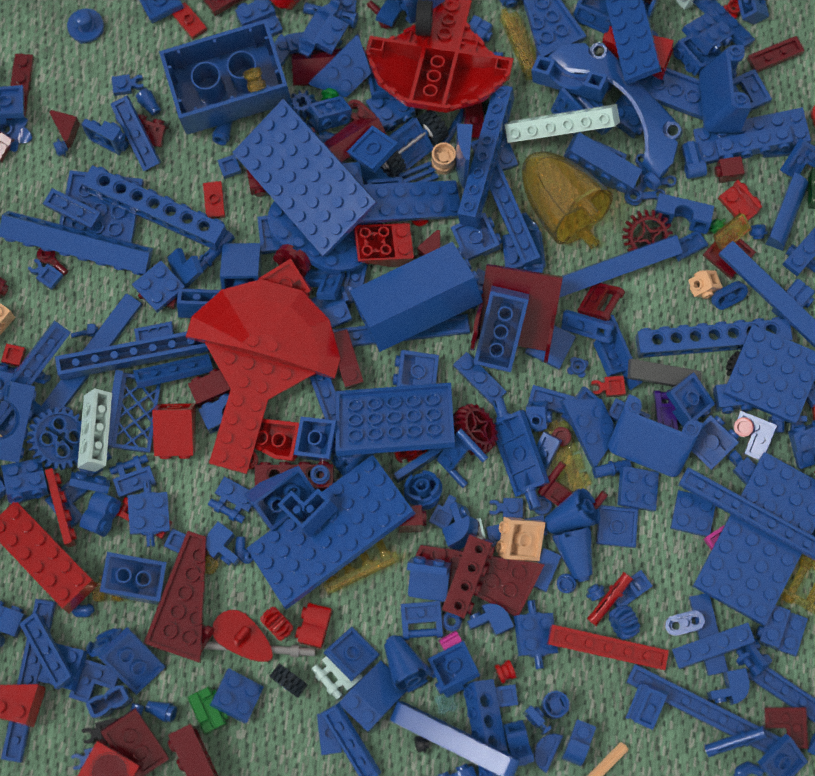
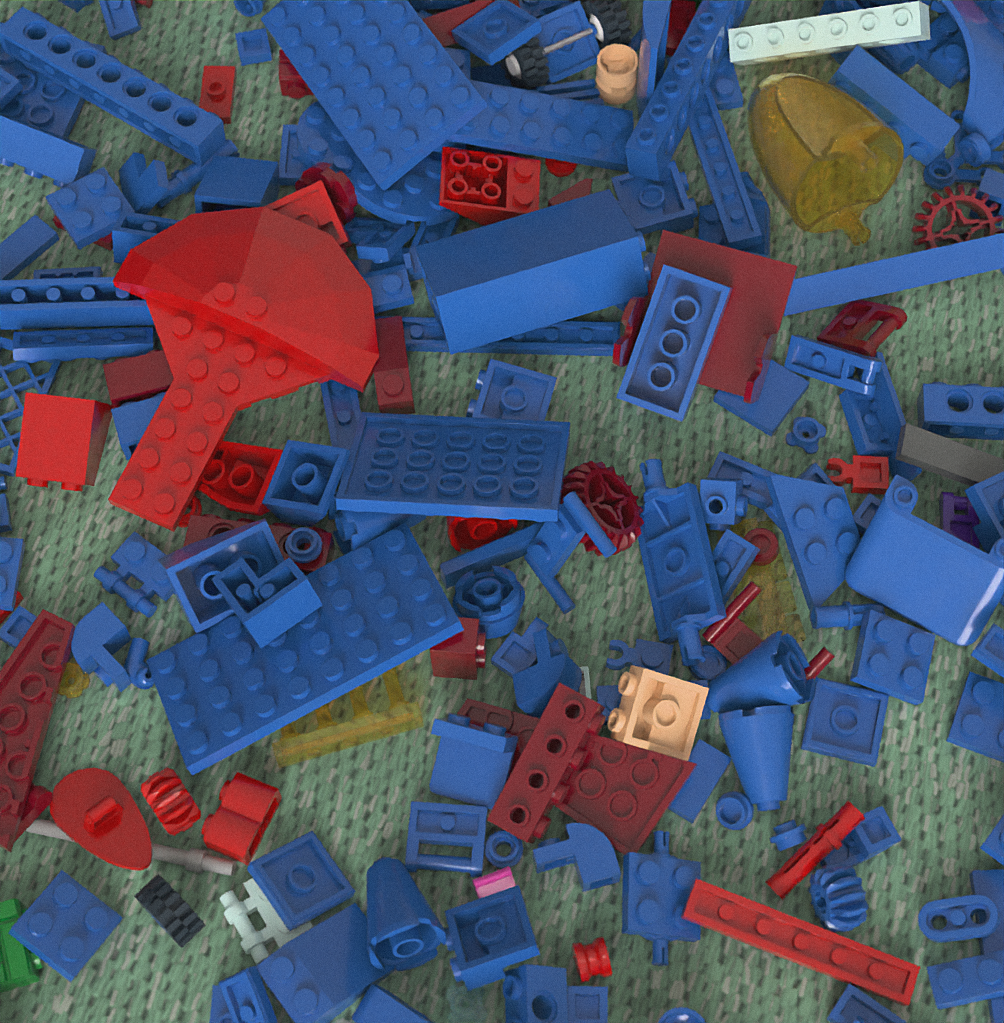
camera: 10 degrees right, 10 degrees down
(479, 378) = (622, 428): blue plate -> none

